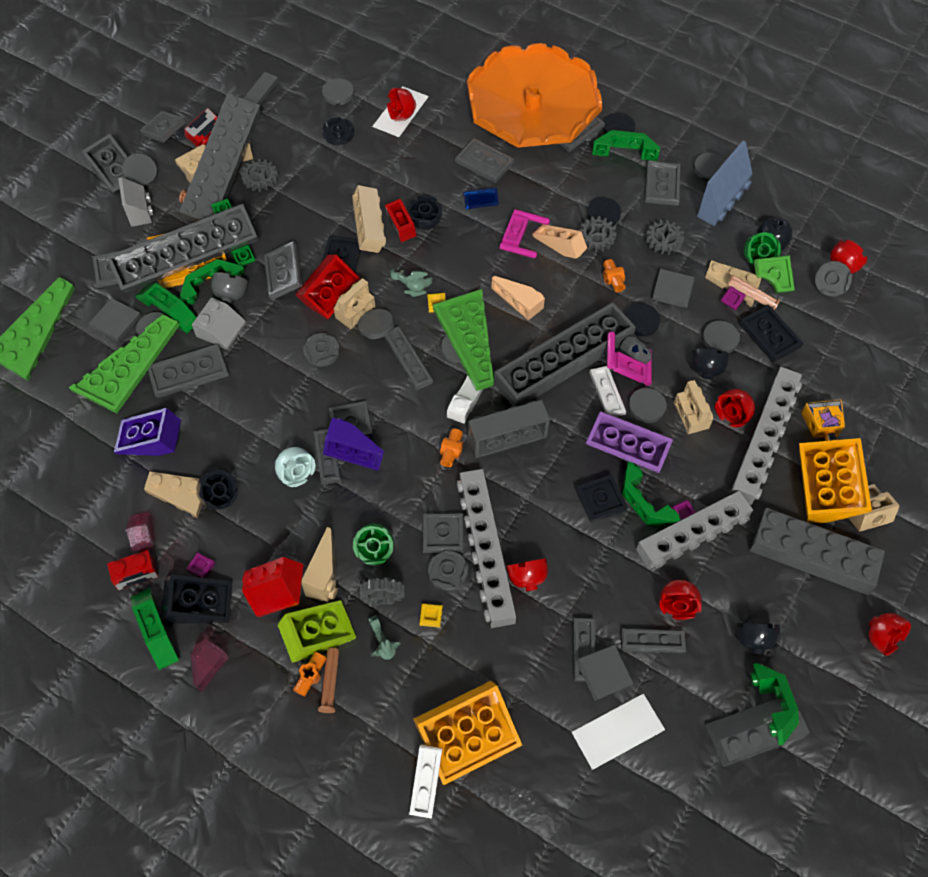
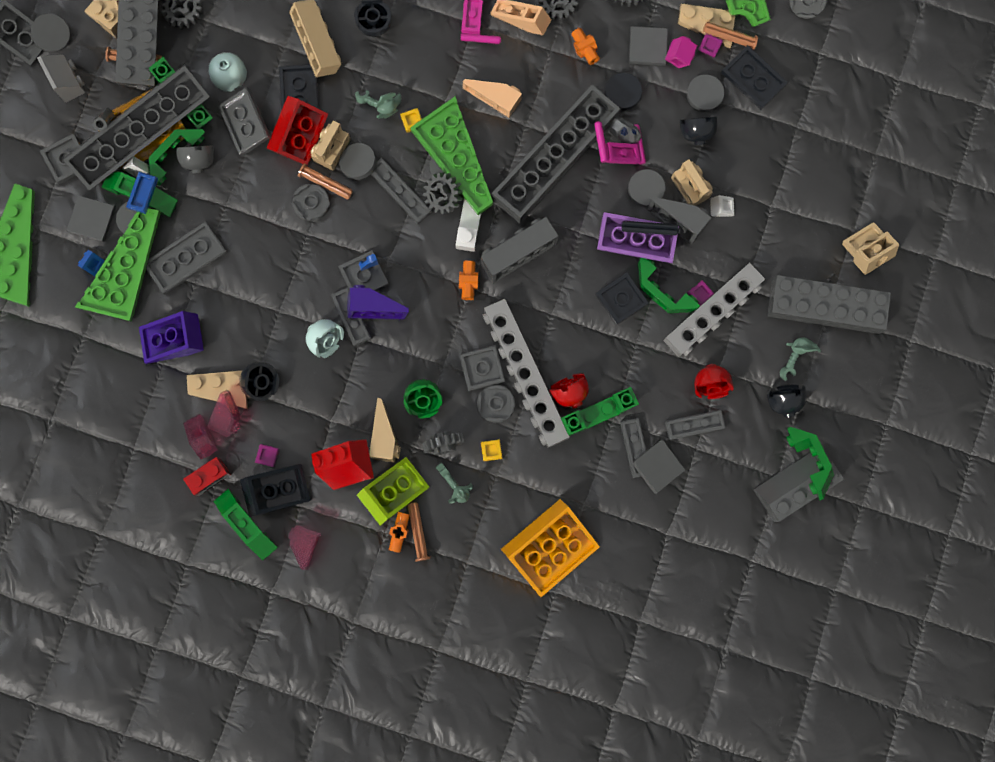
camera: 15 degrees left, 20 degrees up
(98, 353) = (91, 262): none -> blue tile
(154, 231) = (103, 119): none -> dark grey bar
(167, 301) = (142, 192): none -> blue tile
(171, 284) = (135, 165): none -> white slope
(172, 514) = (225, 415): none -> clear pink slope
(218, 324) = (199, 200): light grey slope -> none
(281, 229) = (227, 71): none -> light aqua cylinder
(339, 334) = (324, 181): none -> nougat axle
(359, 409) = (370, 262): none -> blue tile
(400, 220) = (350, 32): red brick -> none
(425, 781) = (526, 599): white tile -> none
(448, 355) = (444, 191): none -> dark grey gear
(554, 603) = (600, 412): none -> green slope
(607, 391) = (605, 182): white tile -> none
(618, 731) = (679, 513): white sticker -> none
(643, 433) = (649, 228): none -> black axle
(686, 435) = (688, 217): none -> dark grey slope
(704, 297) = (681, 52): none -> dark pink brick
(720, 437) = (722, 206): none -> white slope
(735, 407) = (732, 171): red cylinder -> none
(779, 585) = (799, 346): none -> sand green piece
(784, 380) = (773, 129): light grey brick -> none
(824, 419) = (819, 164): light orange torso -> none
(834, 480) = (836, 230): light orange slope -> none
(888, 631) = (900, 368): red cylinder -> none

